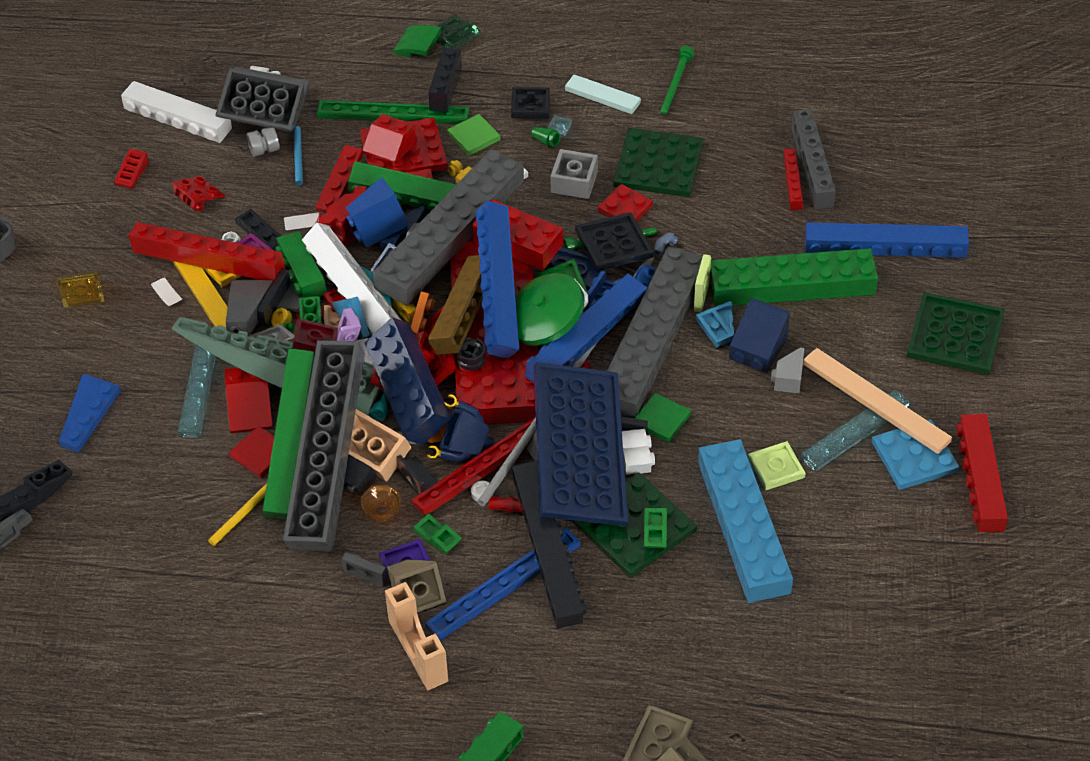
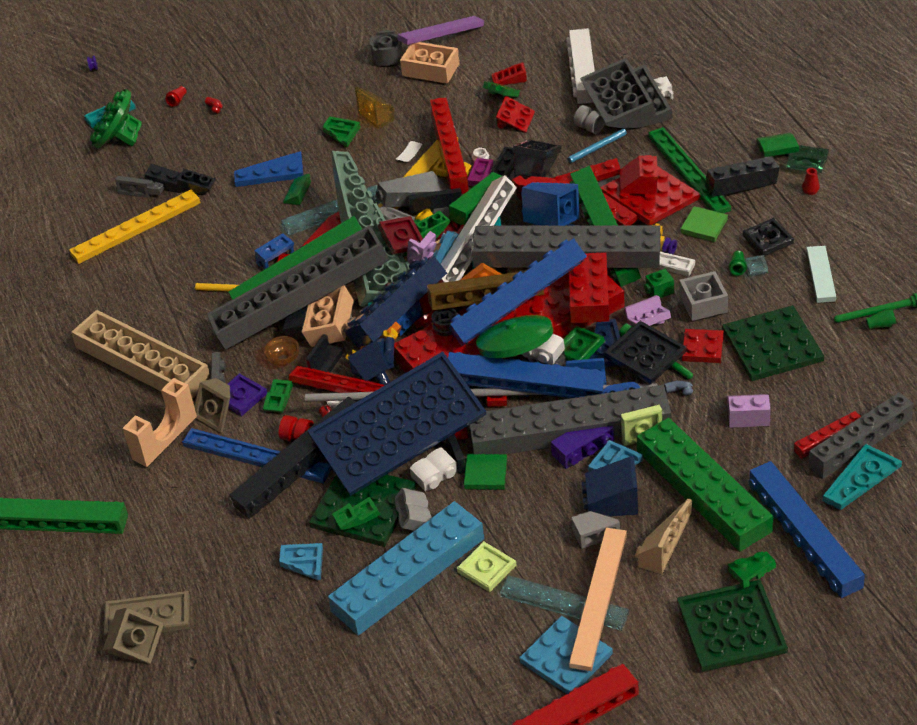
camera: 65 degrees right, 5 degrees down
(16, 184) = (440, 30): none -> medium lavender tile
(54, 215) = (430, 62): none -> light nougat brick
(61, 564) = (134, 226): none -> yellow plate
(82, 328) = (341, 129): none -> green wing
(140, 400) = (298, 190): none -> green slope
(156, 181) = (494, 88): none -> green wing
(227, 453) = (273, 249): none -> blue hinge
(287, 200) = (534, 158): none -> black piece
(288, 624) = (137, 353): none -> tan brick
(489, 45) = (811, 183): none -> red cone
(503, 534) = (292, 428): none -> red wheel
(529, 196) = (659, 283): none -> green brick
(564, 217) = (647, 311): none -> lavender bracket
(674, 596) = (303, 559): none -> dark azure wing
(684, 339) = (579, 444): none -> dark purple slope
(684, 487) = (412, 508): none -> light grey brick
(691, 83) = (882, 319): none -> green cone
(726, 210) = (748, 410): none -> lavender slope
(843, 332) = (662, 541): none -> tan wedge
(851, 178) = (862, 474): none -> teal wing
(906, 292) = (750, 567): none -> green wing

